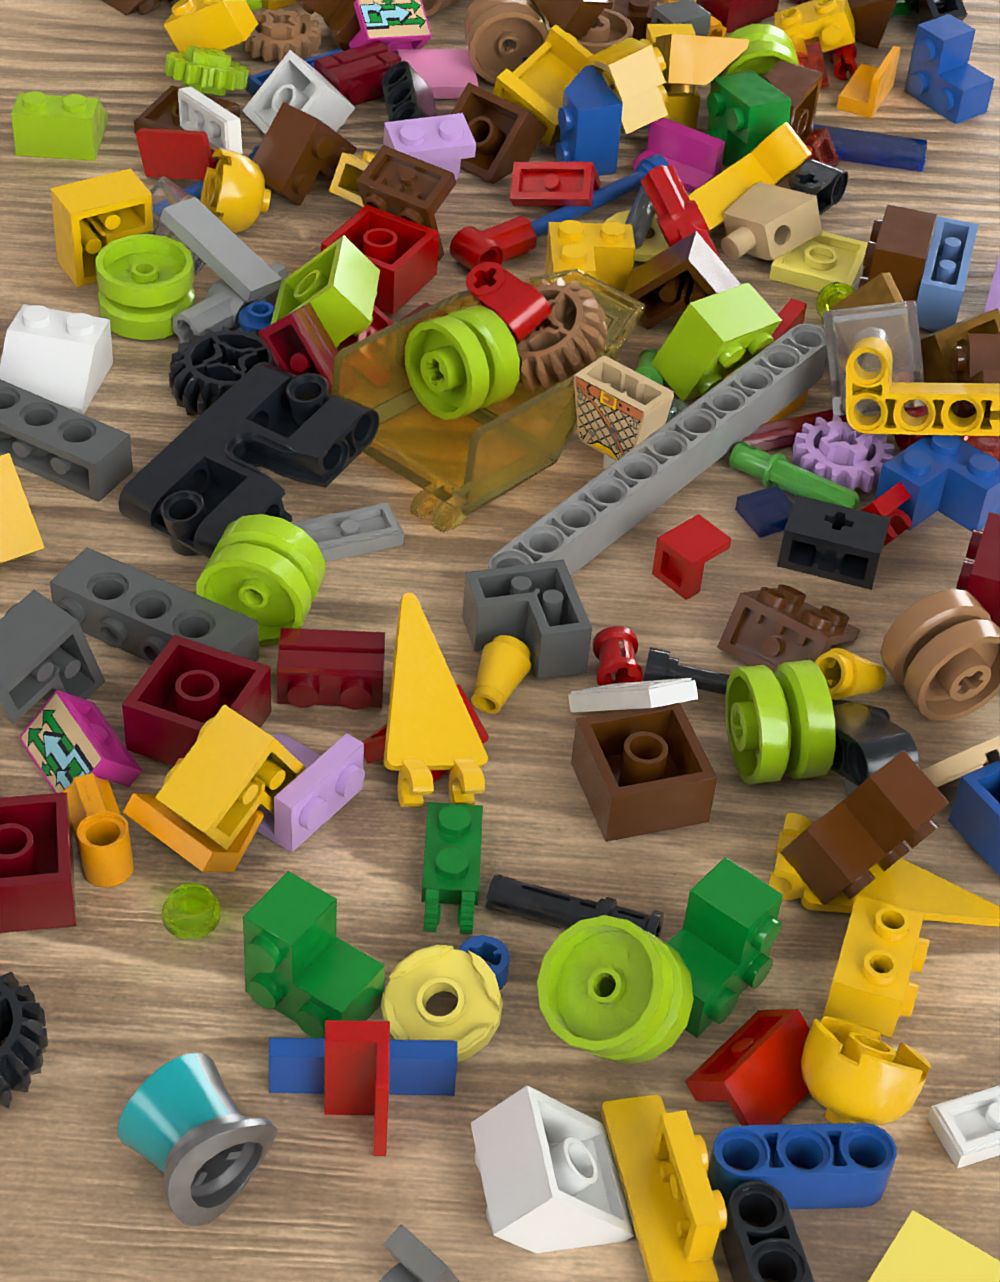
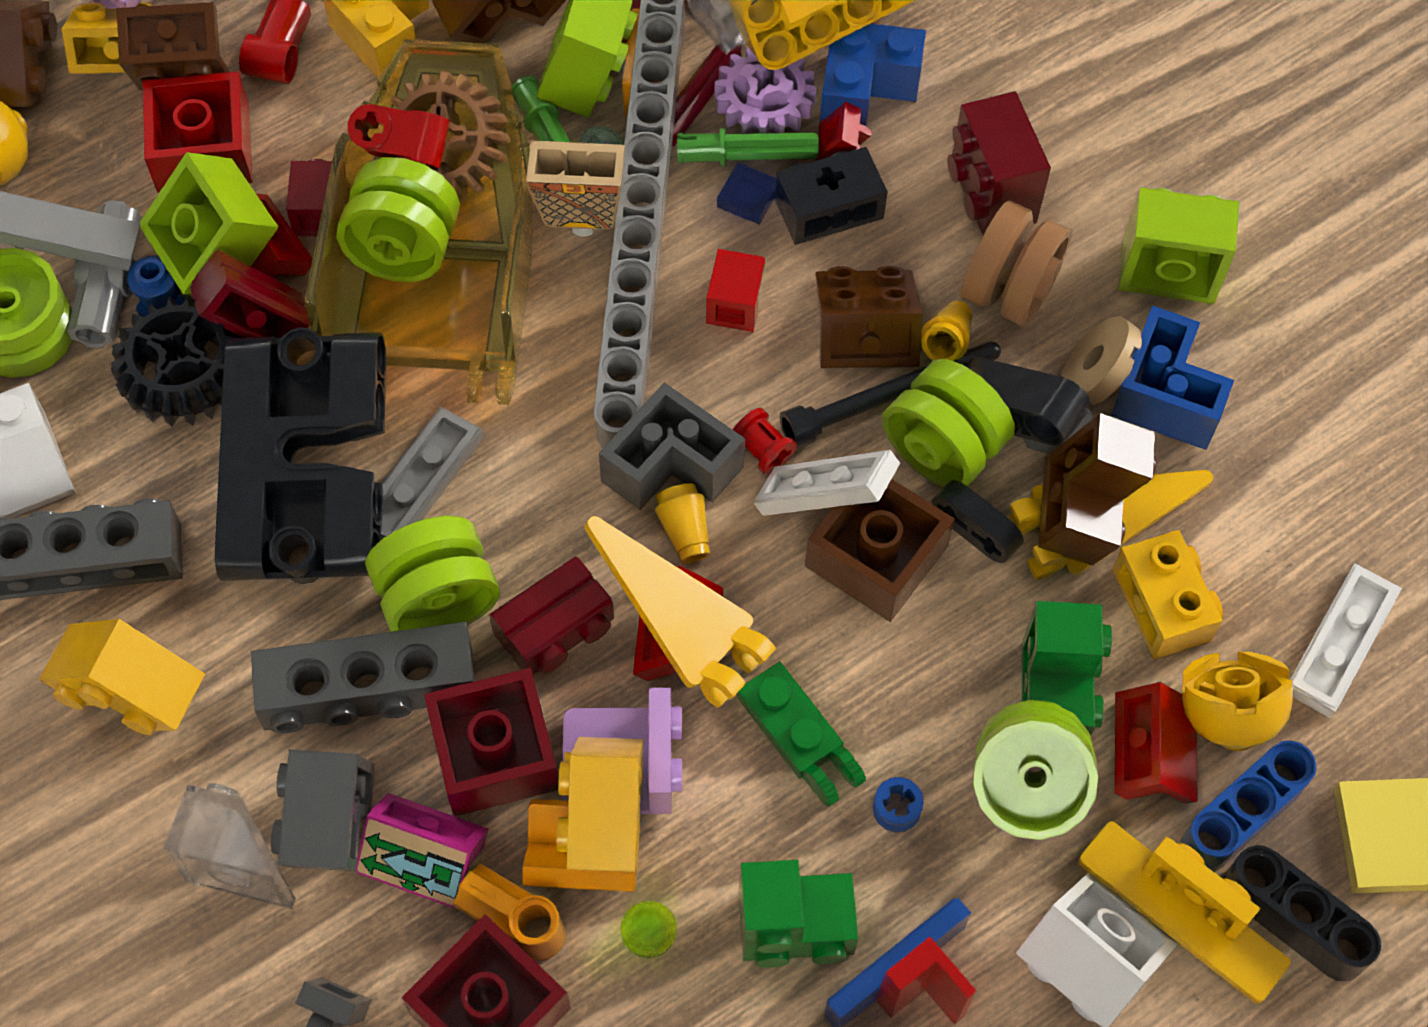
camera: 35 degrees left, 20 degrees up
(444, 970) = (937, 862): light yellow tile -> none
(560, 908) = (951, 702): black pin -> none
(748, 815) = (979, 521): none -> black beam

